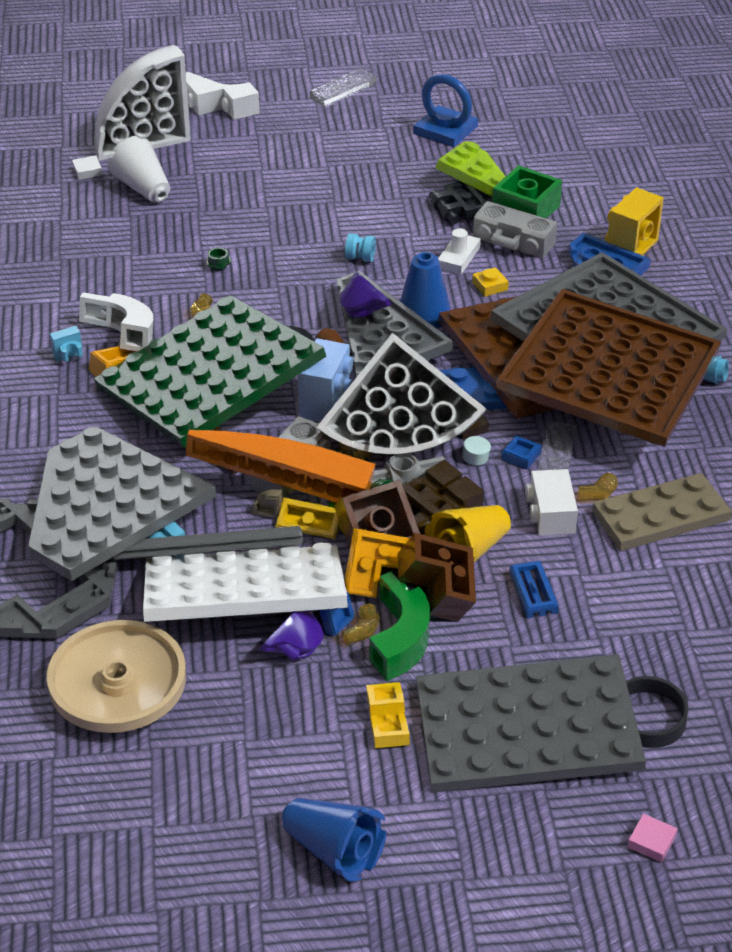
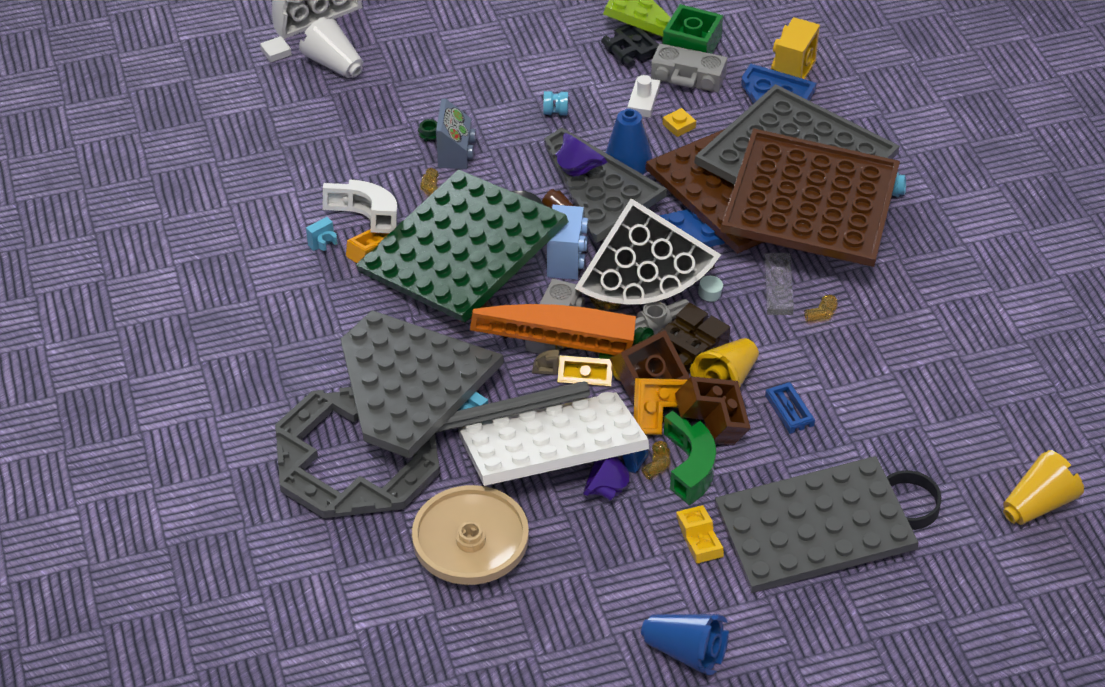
camera: 10 degrees left, 5 degrees up
(238, 265) = (454, 137): none -> sand blue slope
(521, 452) = (748, 284): blue tile -> none
(552, 502) = (787, 327): white brick -> none
(652, 838) = (935, 603): bright pink tile -> none
(661, 511) = (878, 322): dark tan plate -> none

